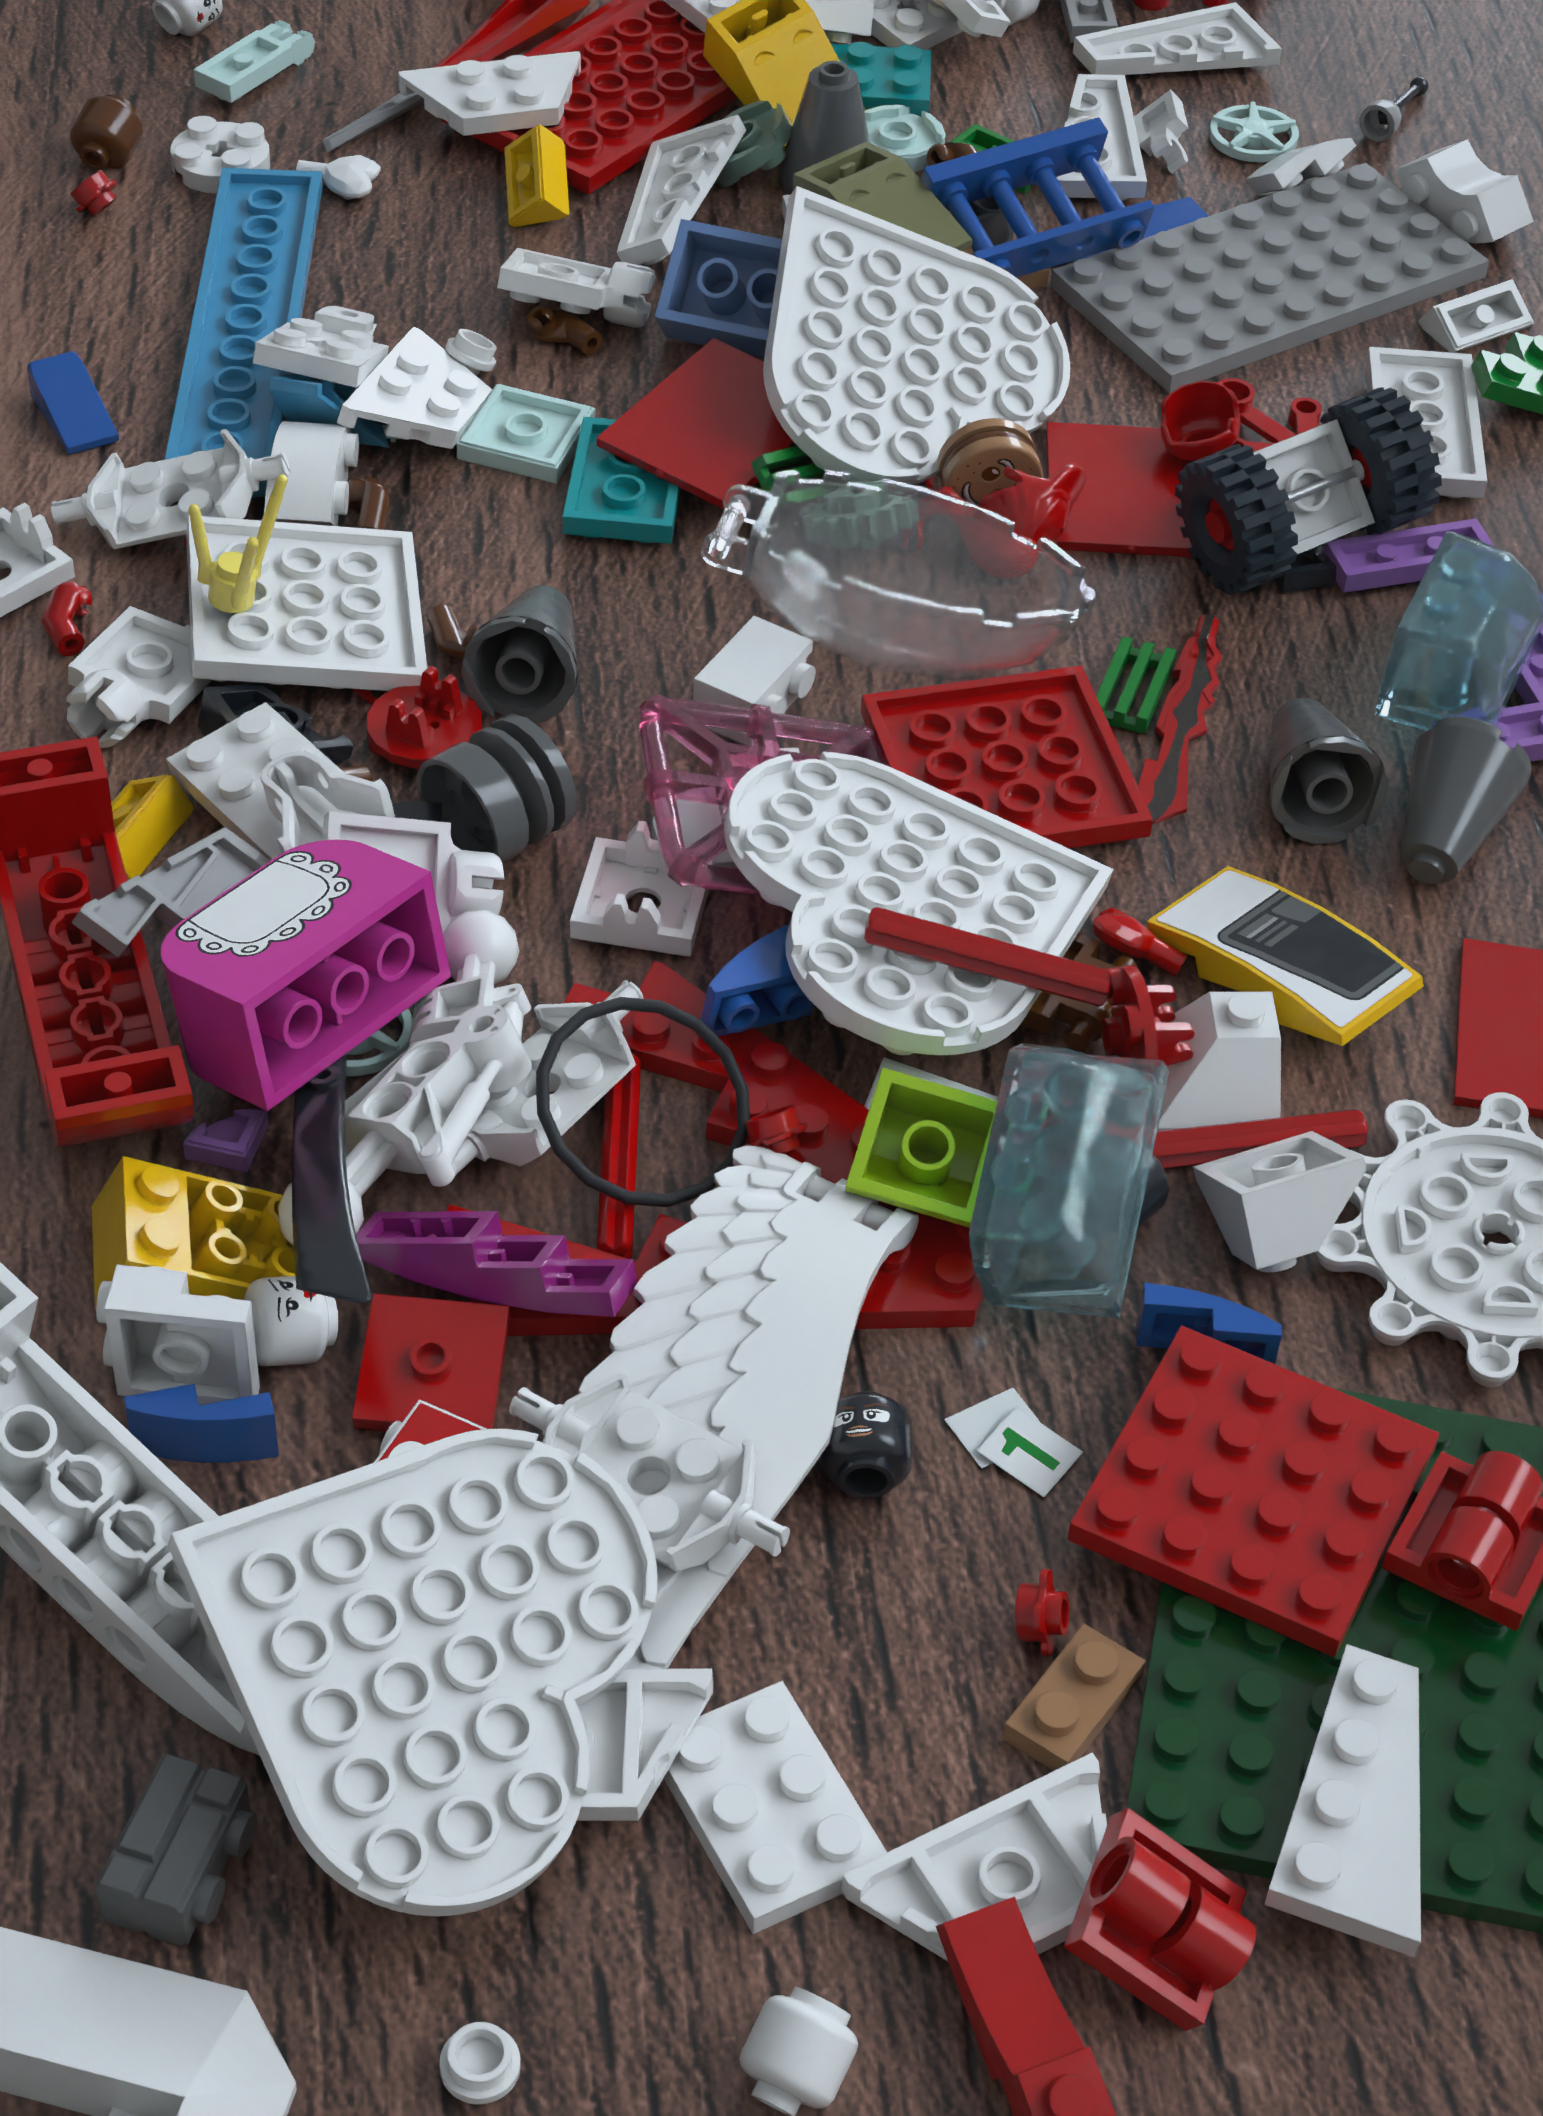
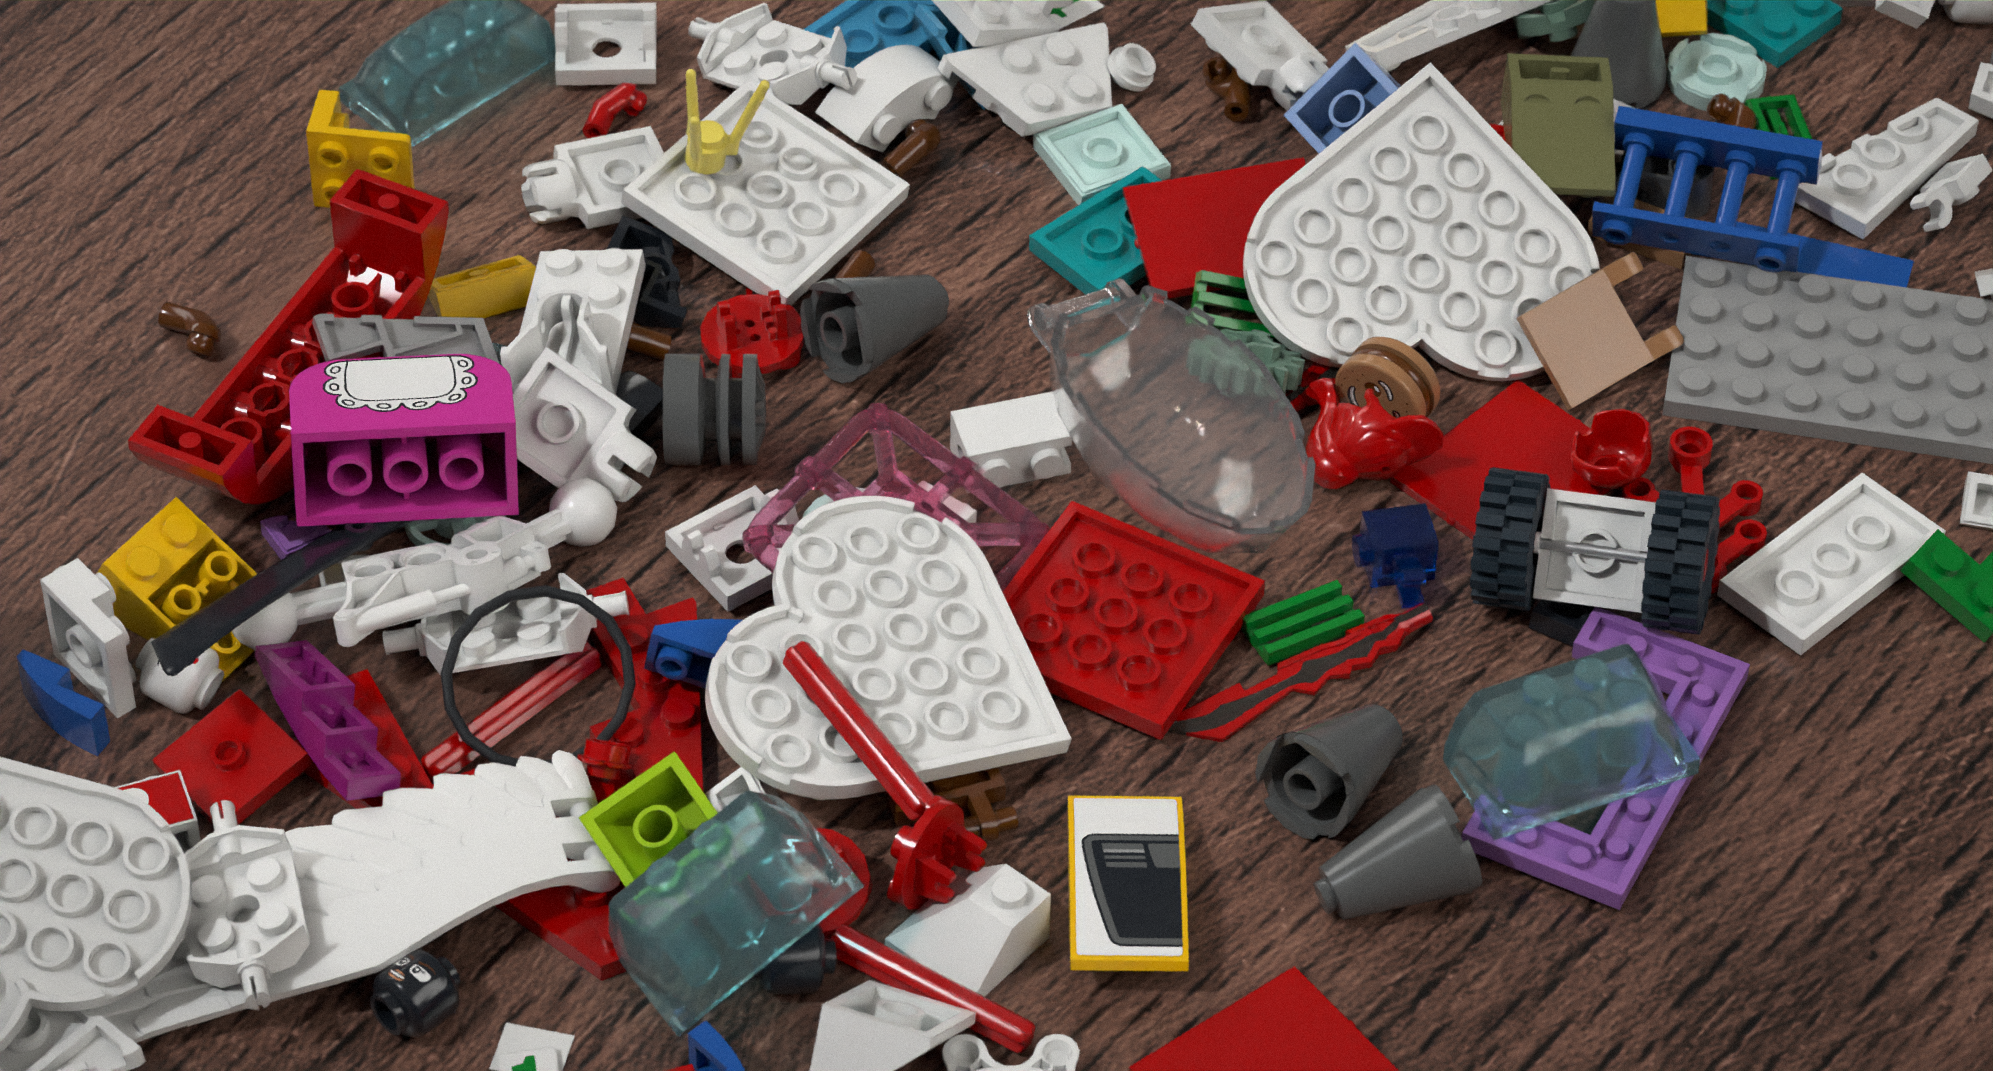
camera: 45 degrees right, 0 degrees up
(1073, 354) = (1589, 337): none -> medium nougat flag
(1136, 940) = (1041, 797): red rock -> none
(1140, 584) = (1398, 550): none -> clear blue brick

